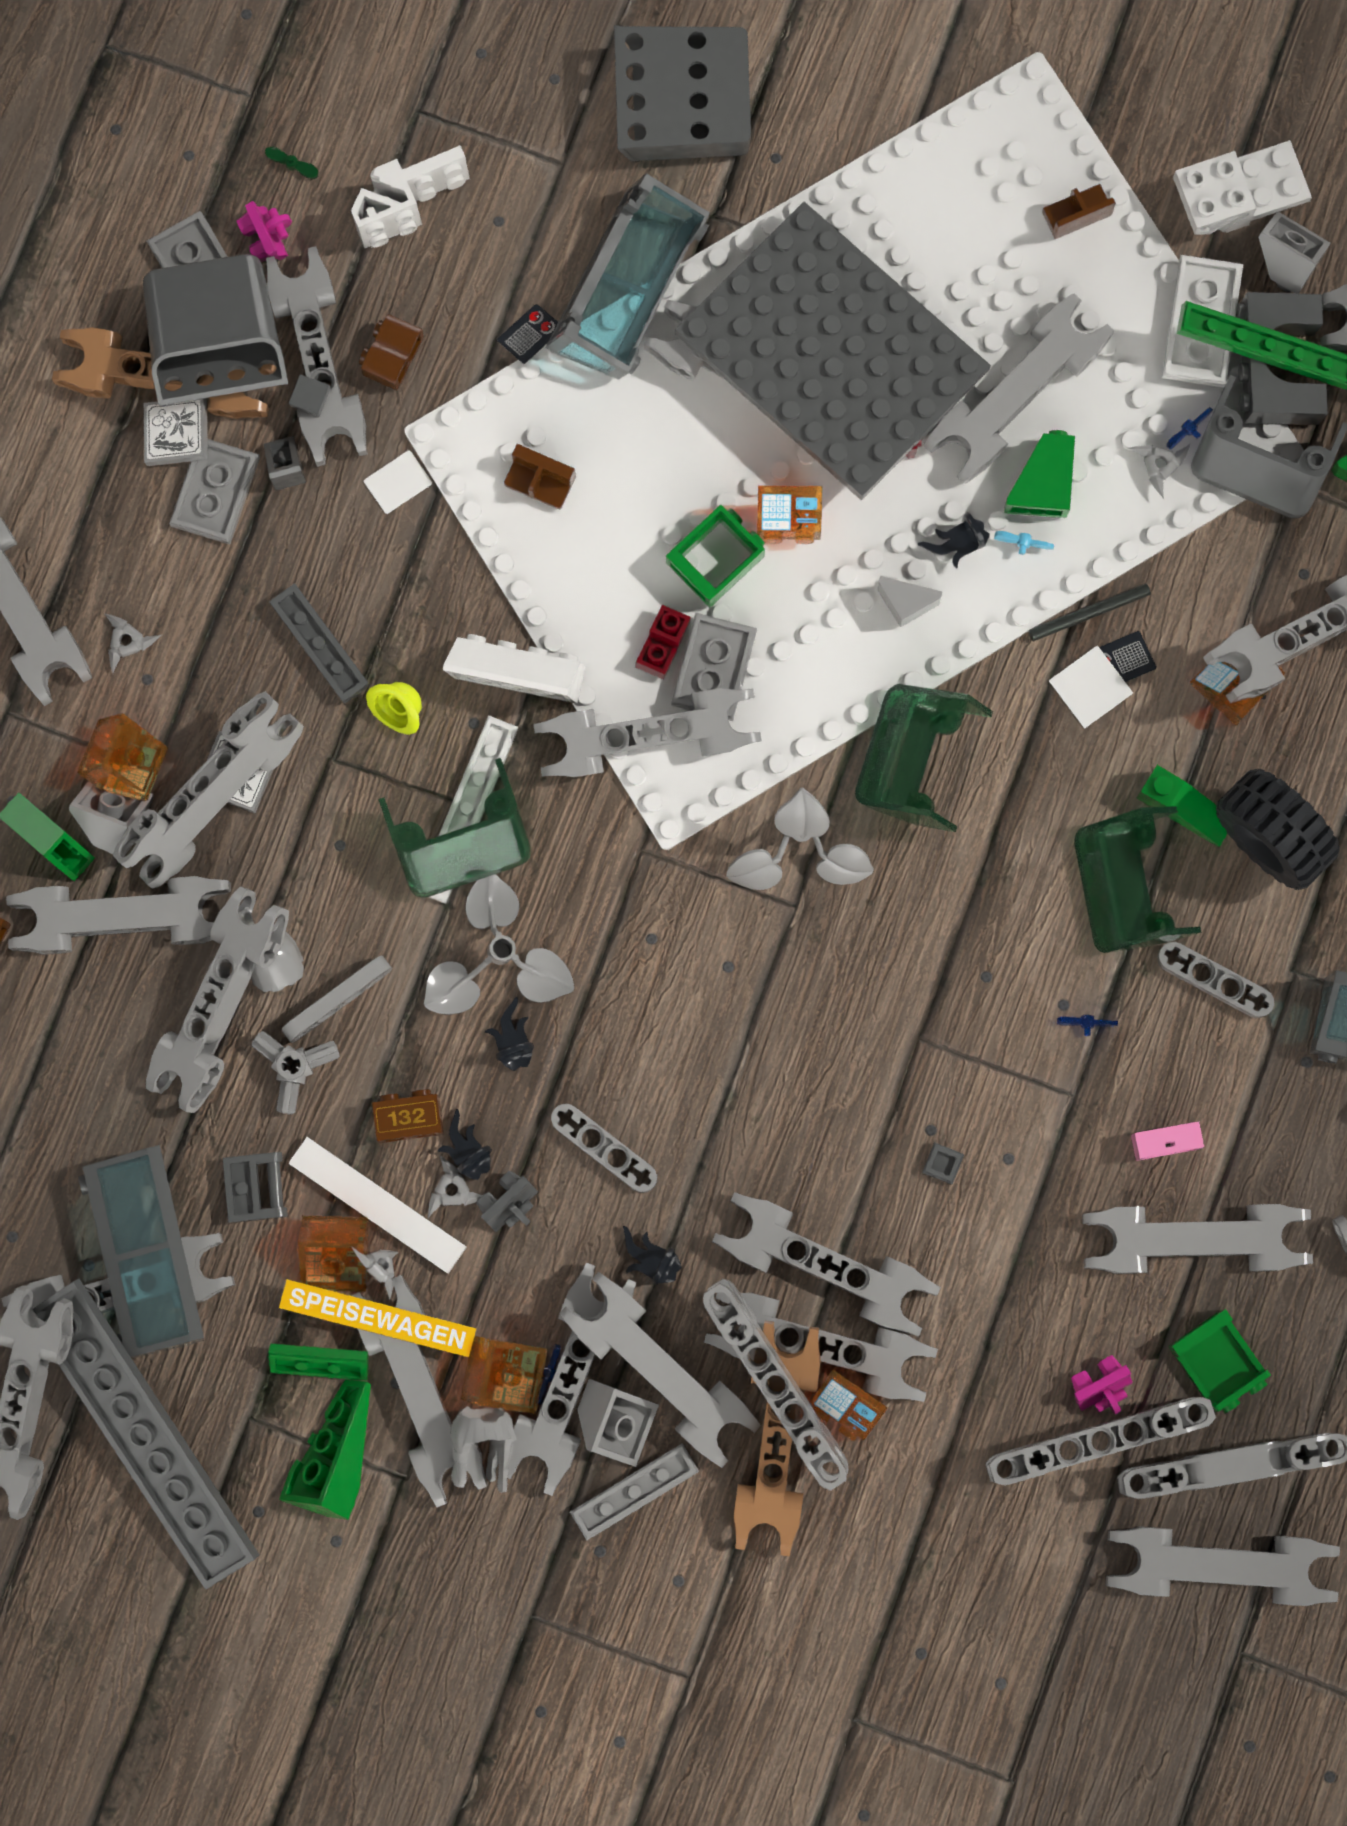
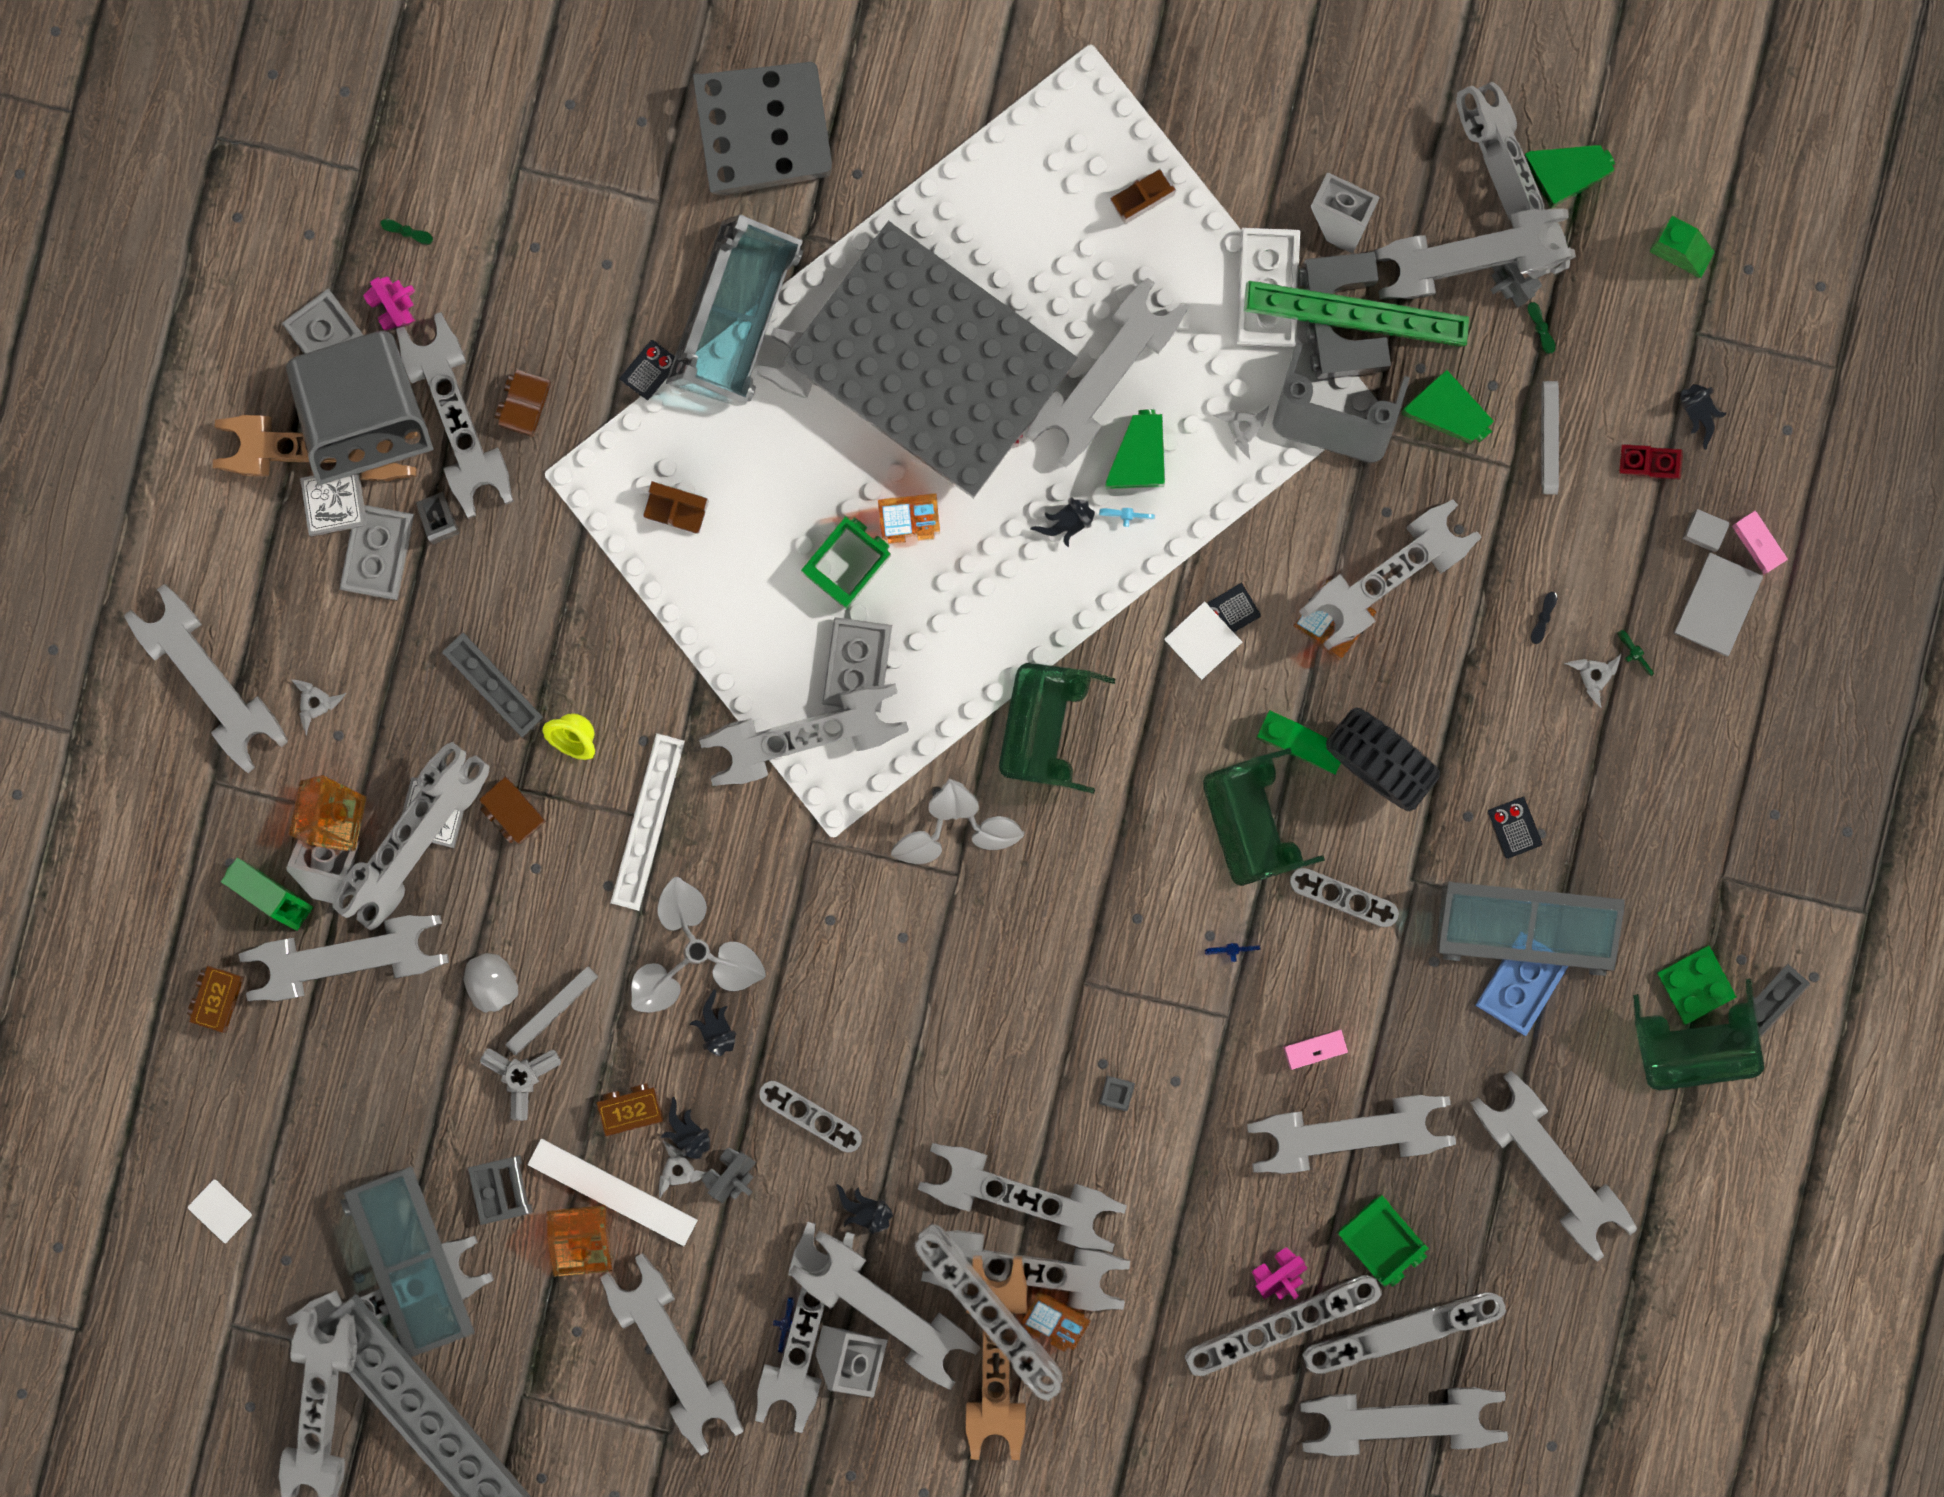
camera: 15 degrees left, 5 degrees up
(241, 947) = (460, 976): light grey piece -> none
(309, 395) = (454, 457): dark grey tile -> none
(318, 1362) = (578, 1339): green tile -> none
(322, 779) = (511, 811): none -> reddish brown brick
(332, 1467) = (602, 1431): green wedge -> none
(377, 1318) = (626, 1295): yellow sticker -> none
(382, 1272) = (624, 1254): light grey piece -> none
(393, 205) = (513, 271): white piece -> none
(397, 482) = (544, 523): white sticker -> none
(465, 853) = (652, 866): clear green windscreen -> none
(477, 1426) = (731, 1380): light grey piece -> none
(504, 1374) = (745, 1330): clear orange slope -> none
(515, 669) = (676, 689): white slope -> none
(634, 1491) = (875, 1419): light grey tile -> none
(662, 642) = (807, 647): dark red slope -> none
(906, 599) = (1026, 583): light grey slope -> none
(1089, 612) = (1194, 571): pearl dark grey bar -> none
(1188, 428) = (1266, 391): clear blue piece -> none
(1236, 190) = (1291, 158): white piece -> none

